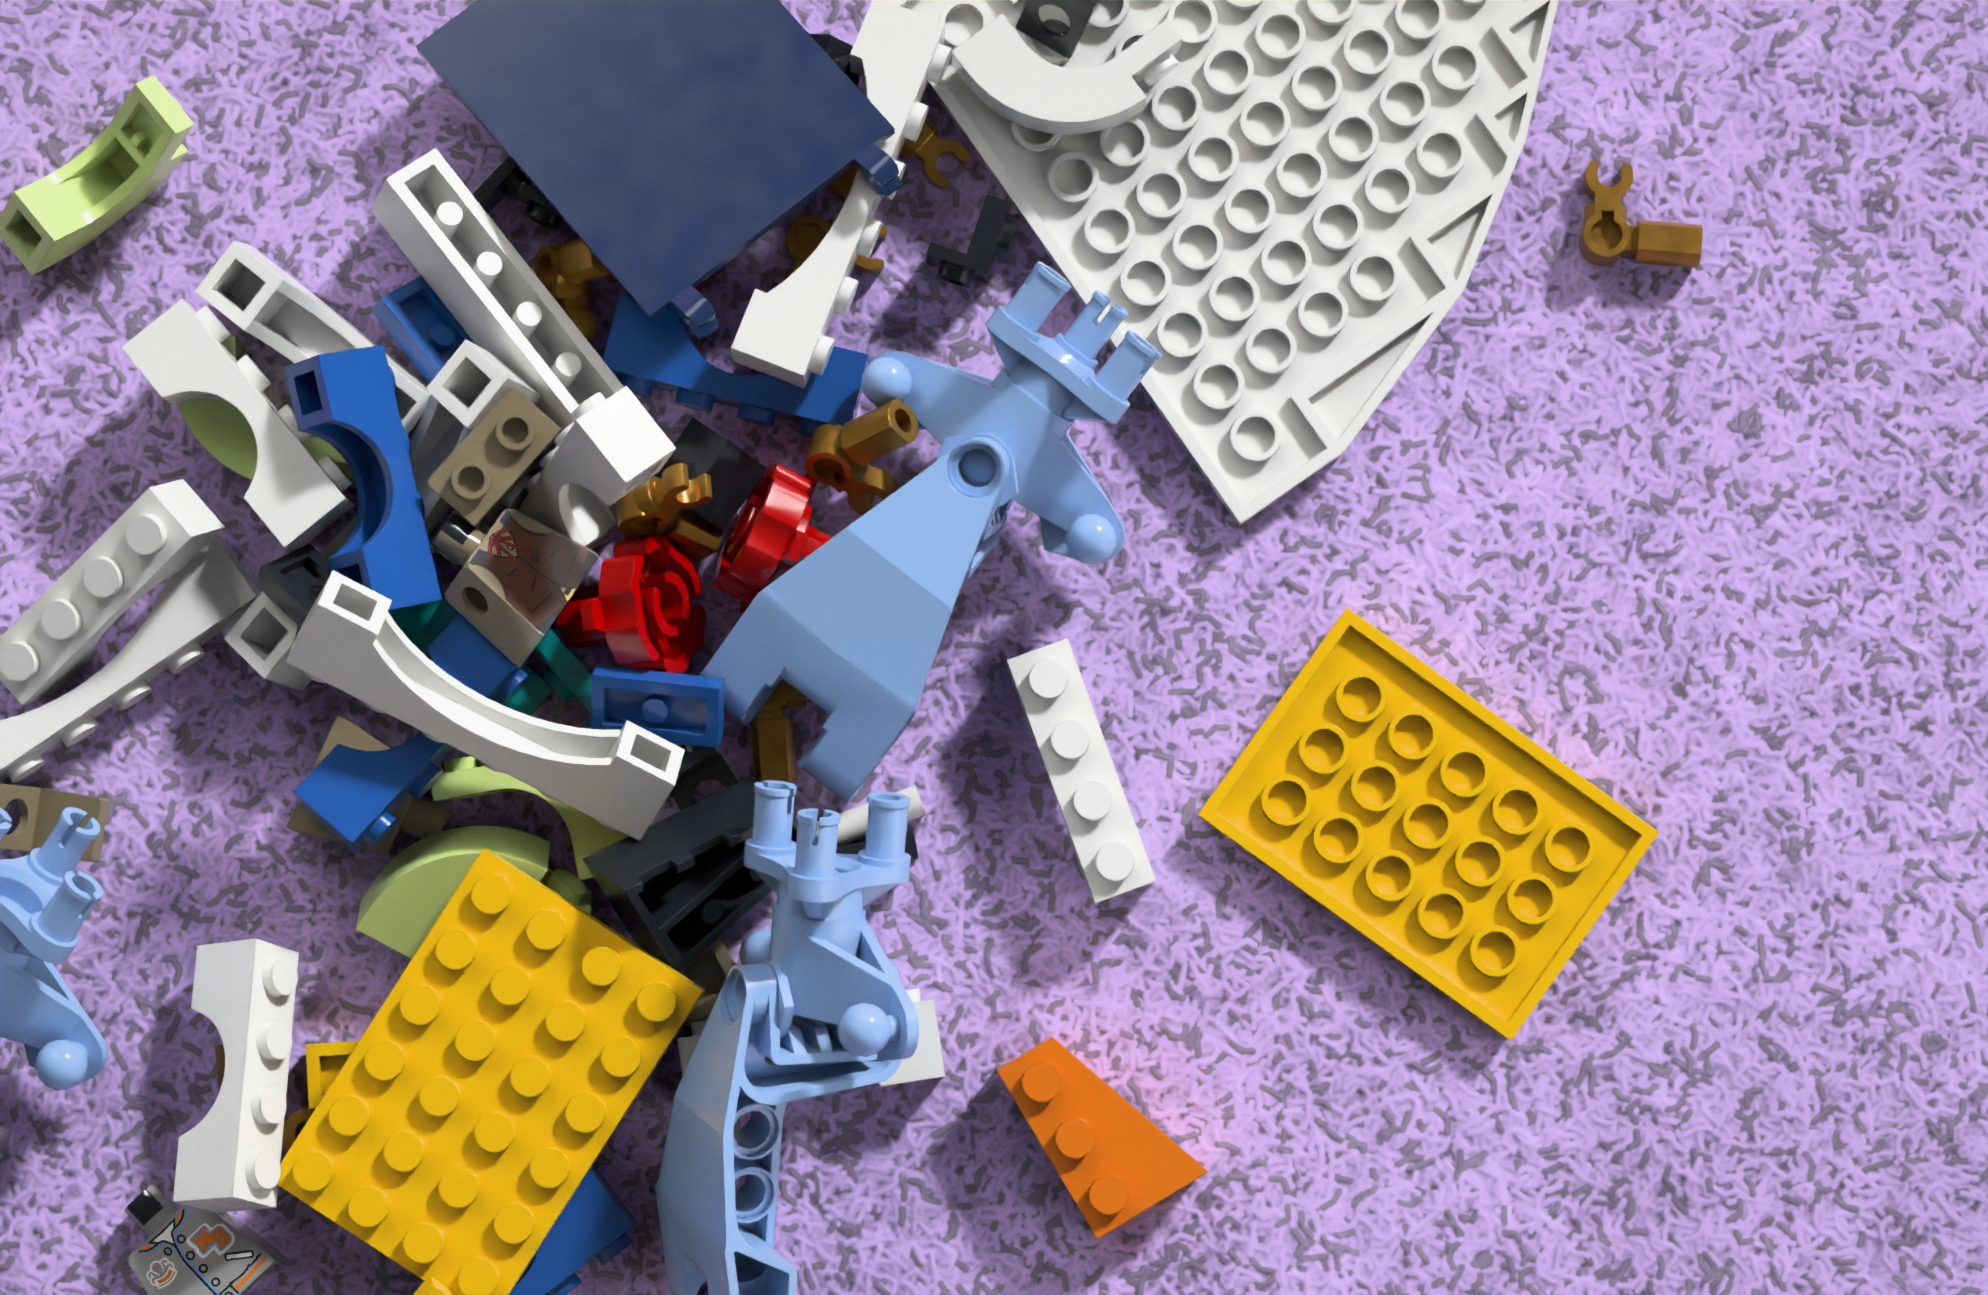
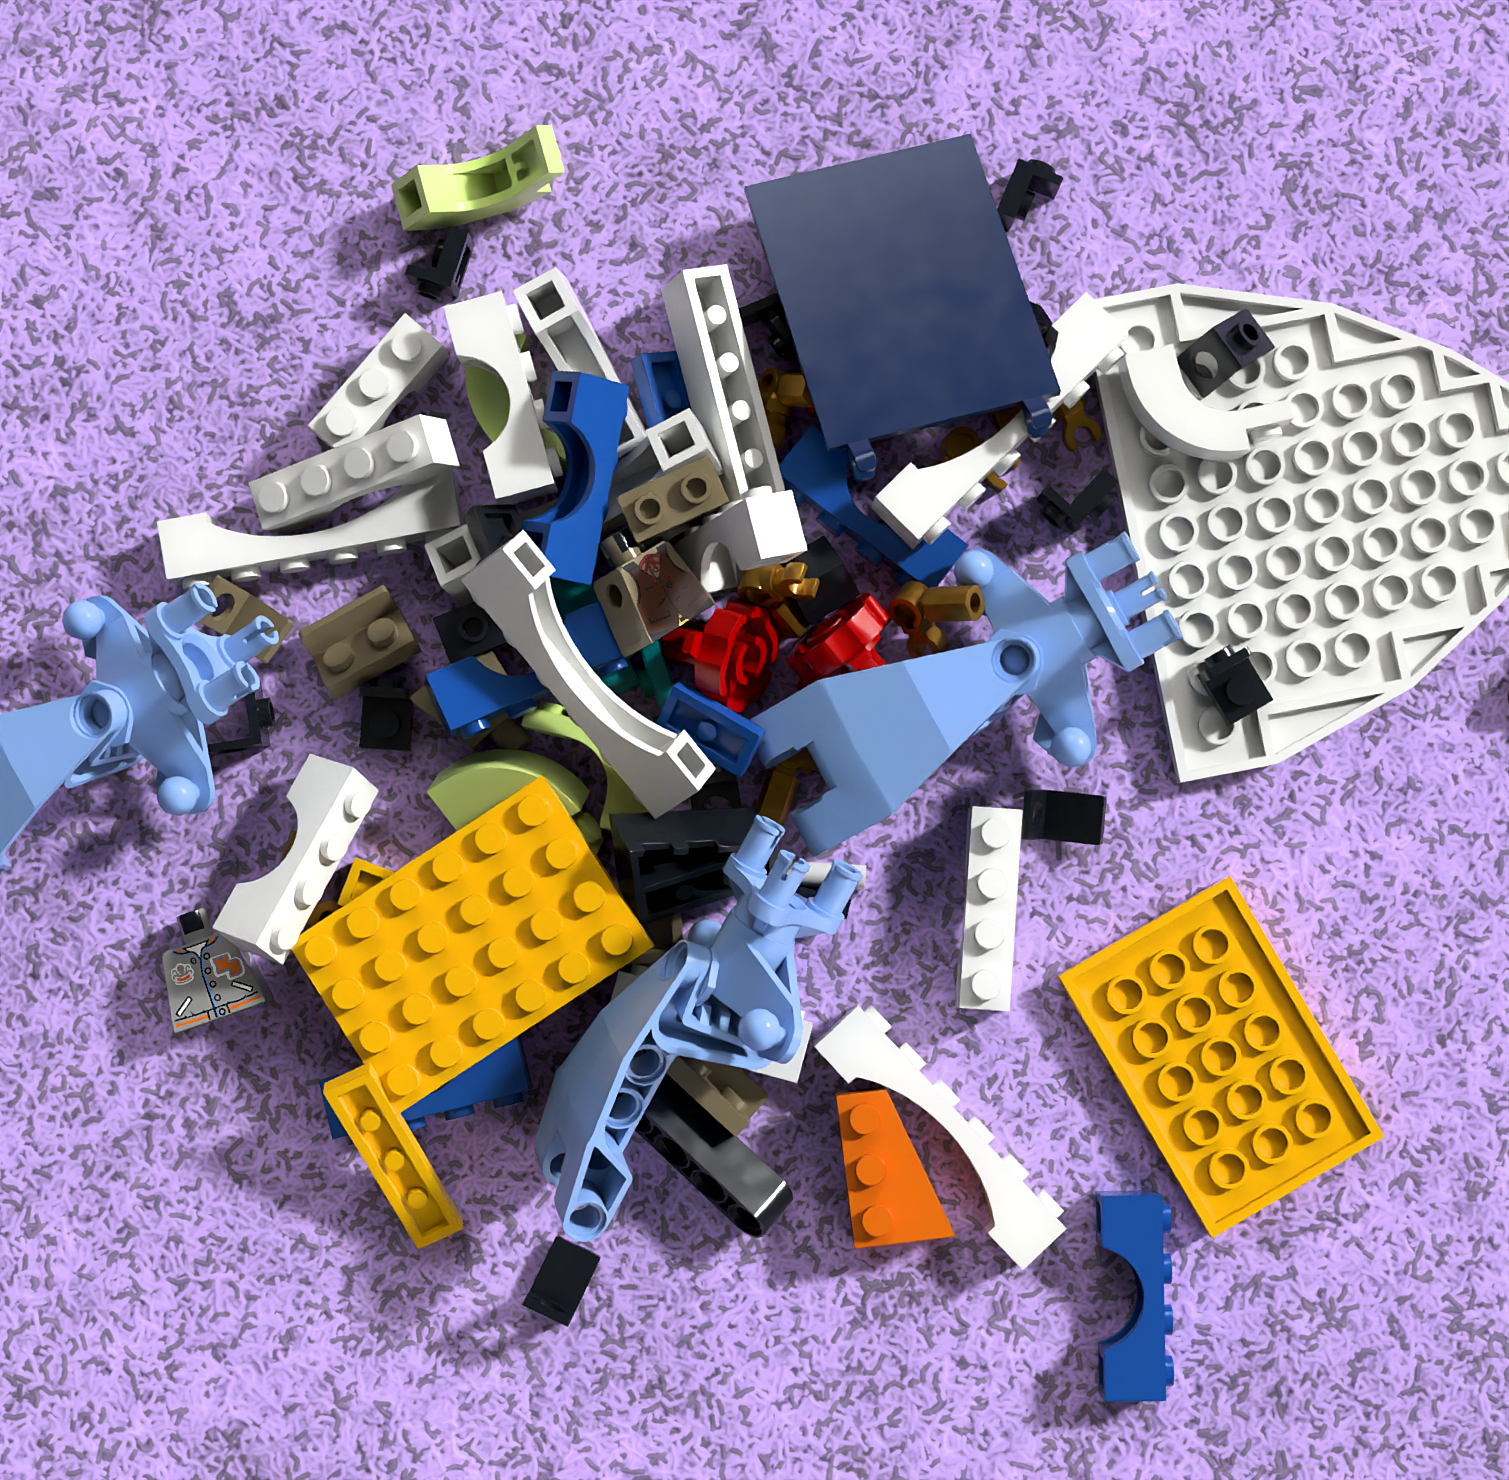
camera: 30 degrees right, 0 degrees up
(93, 446) = (392, 370): none -> white arch
(106, 287) = (451, 262): none -> black bracket
(119, 929) = (260, 717): none -> black bracket
(197, 786) = (359, 641): none -> dark tan bracket
(268, 860) = (386, 715): none -> black bracket
(321, 719) = (468, 632): none -> black bracket
(856, 1123) = (720, 1089): none -> dark tan bracket
(883, 1208) = (713, 1159): none -> black beam
(1121, 624) = (1063, 816): none -> black bracket
(1251, 380) = (1234, 684): none -> black bracket
(1277, 1118) = (1019, 1219): none -> white arch
(1482, 1222) = (1134, 1358): none -> blue arch

